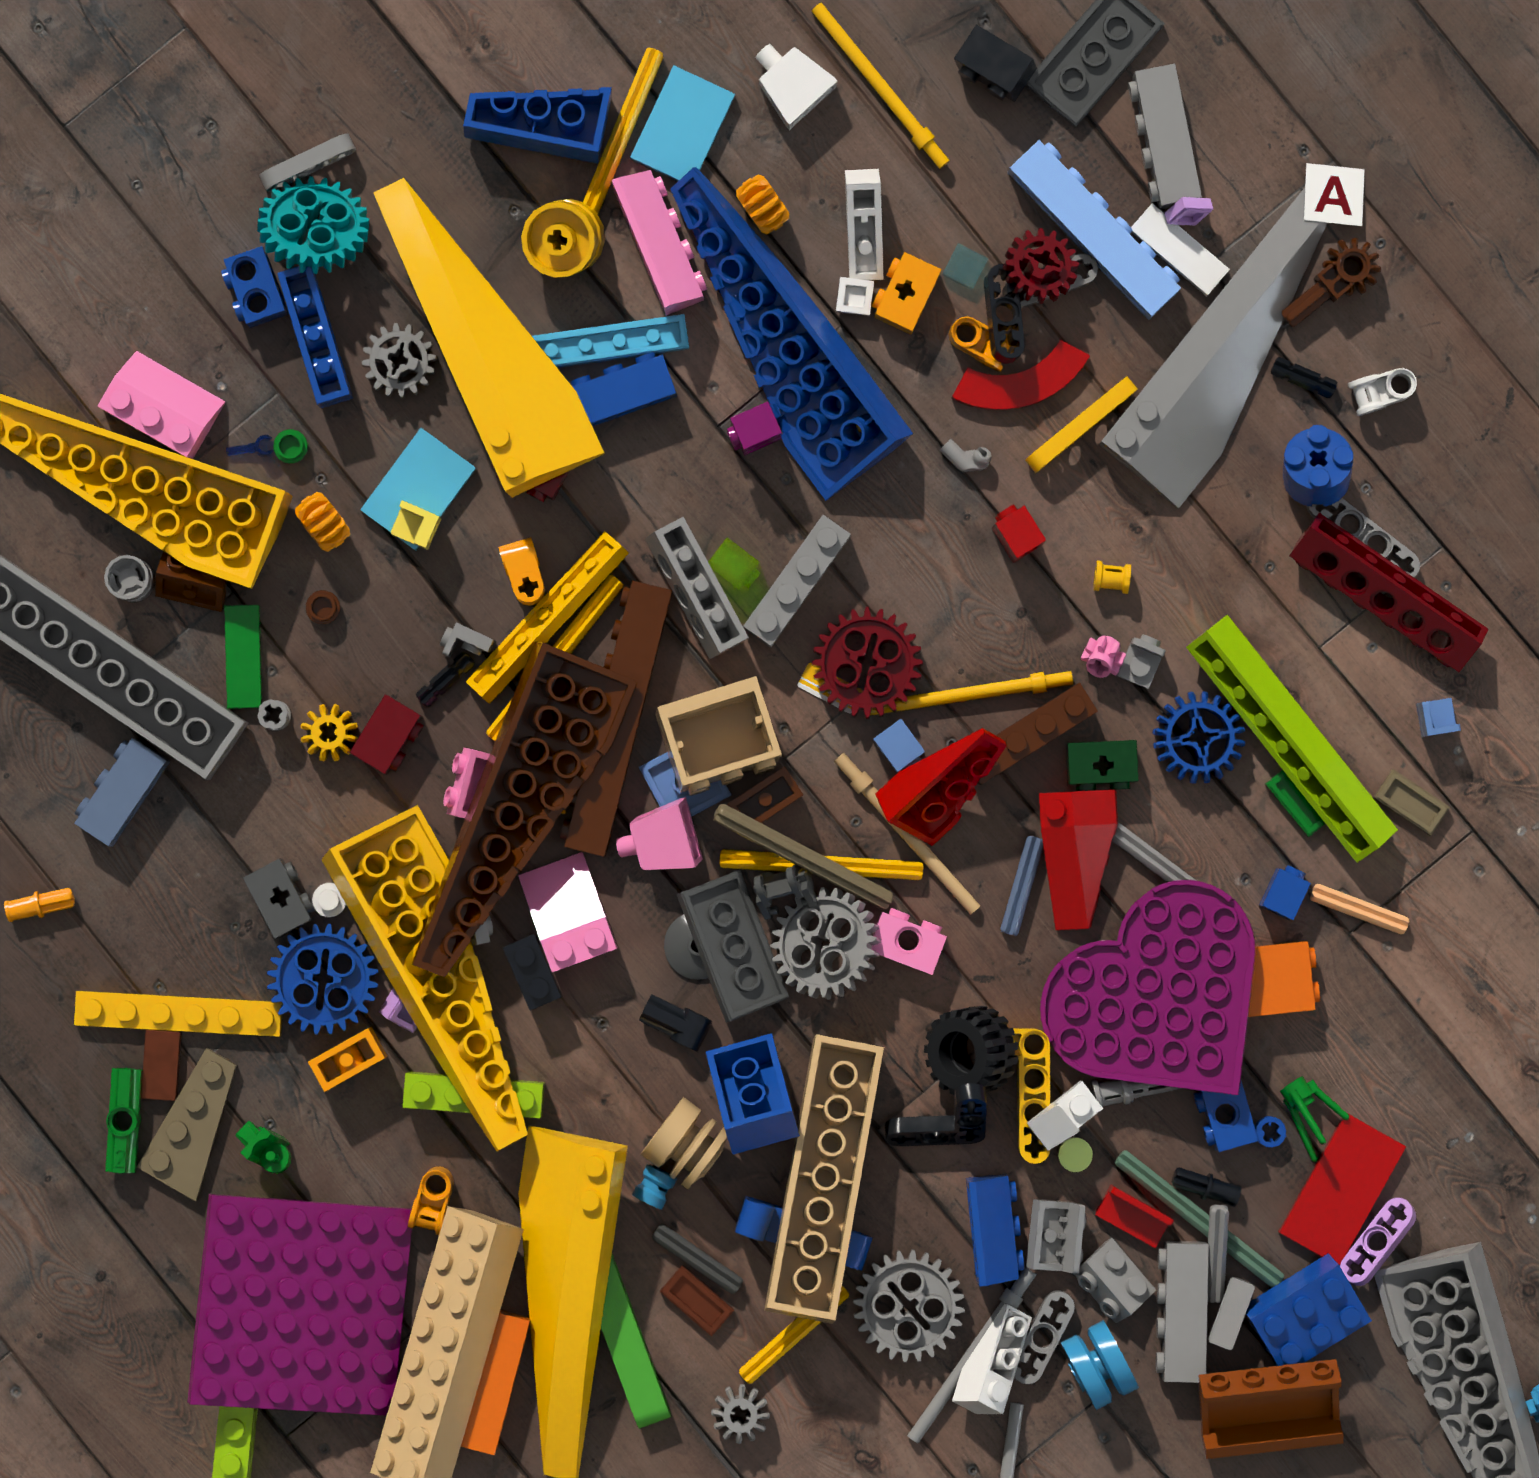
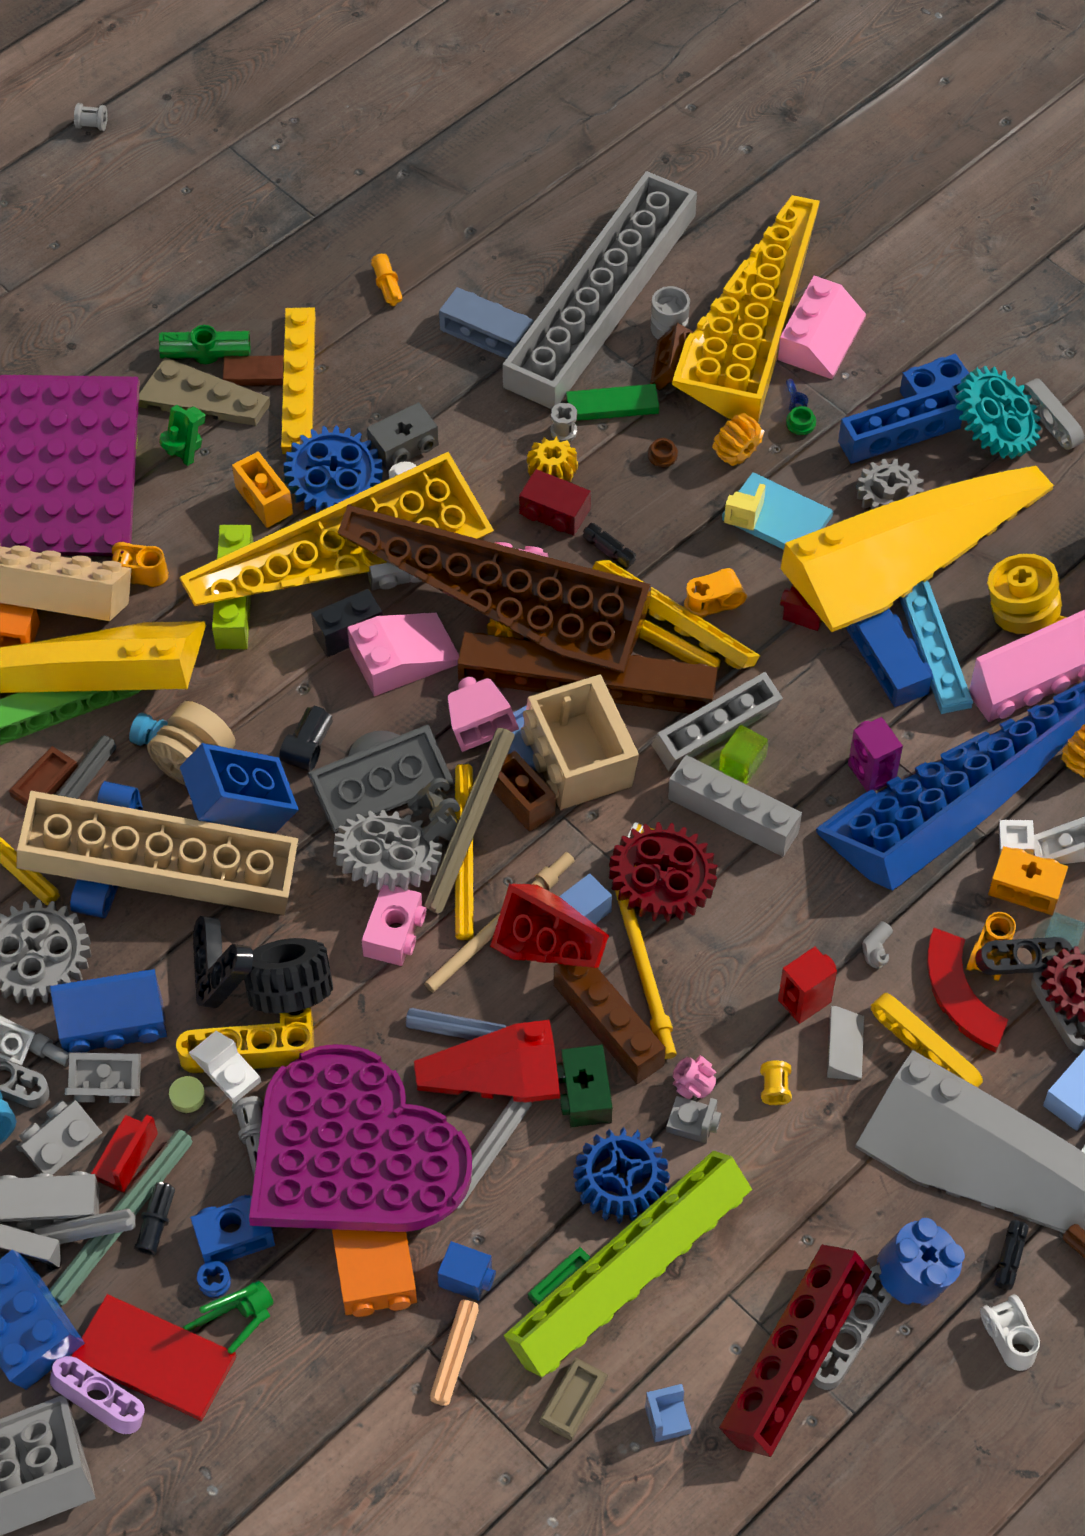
camera: 90 degrees right, 30 degrees down
(472, 640) = (647, 551): light grey bracket -> none
(1072, 503) = (845, 1044): none -> light grey slope

